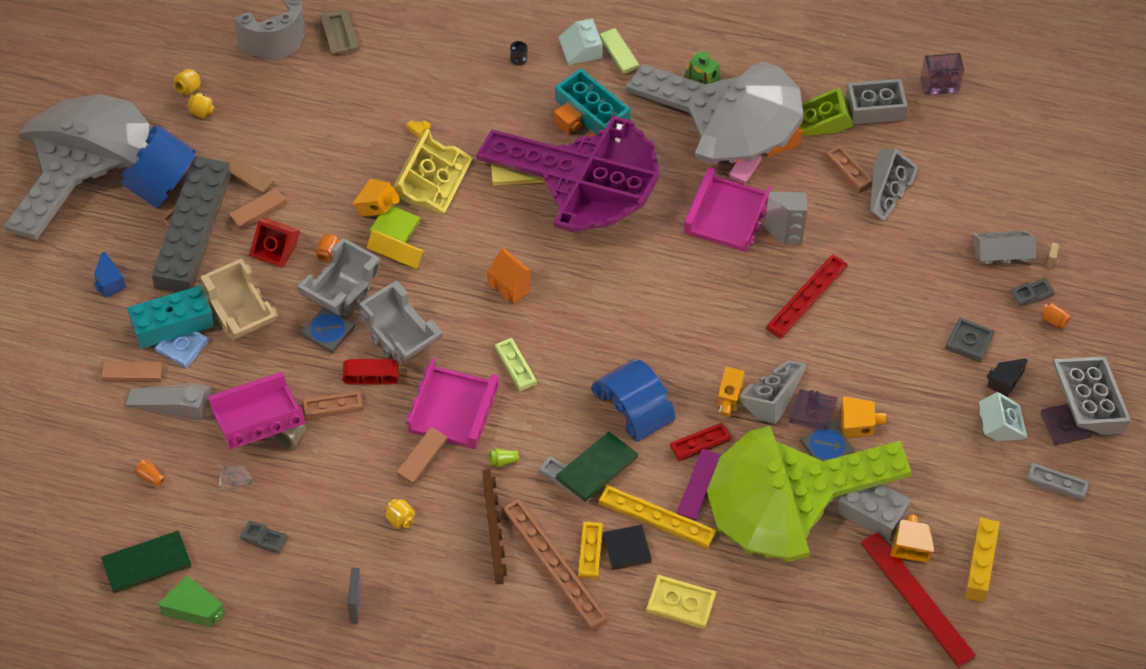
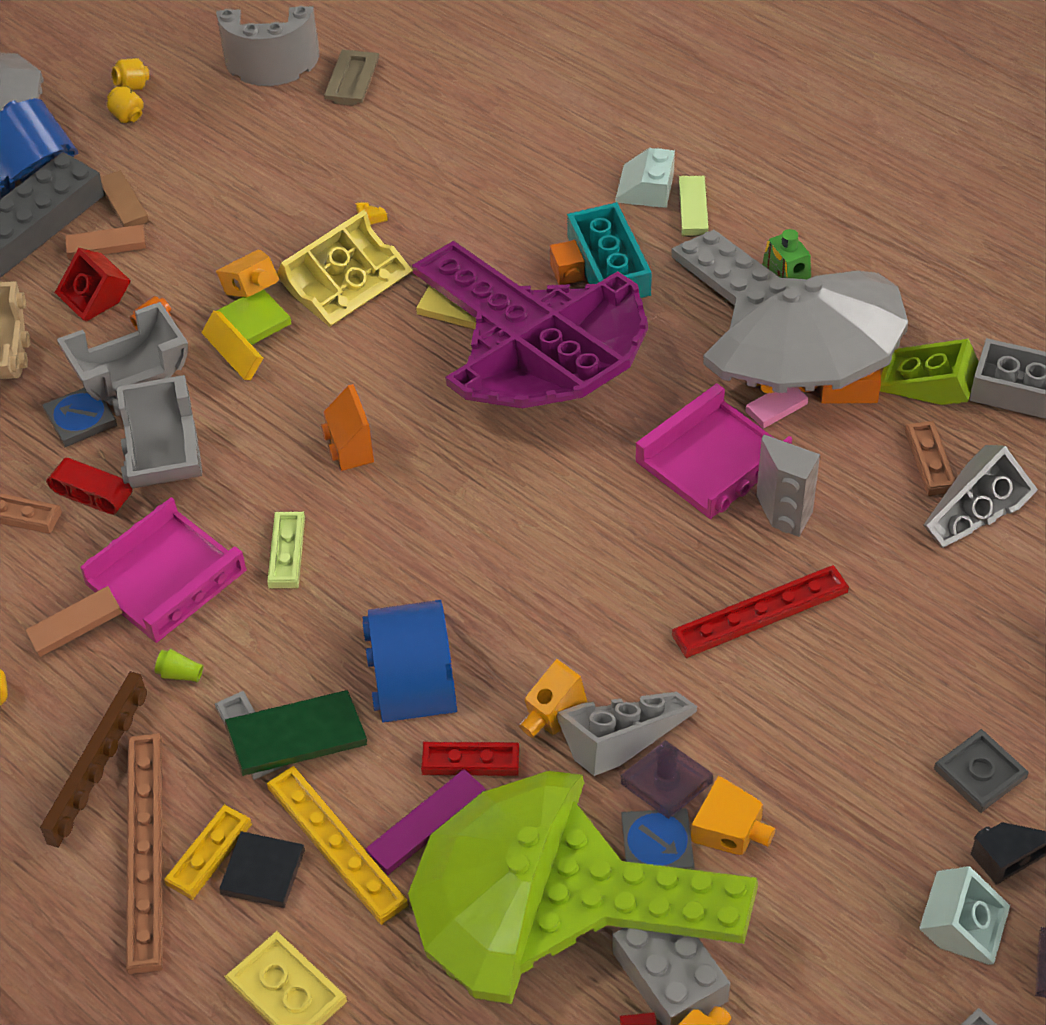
camera: 30 degrees right, 5 degrees down
(518, 53) = (555, 170): black wheel -> none

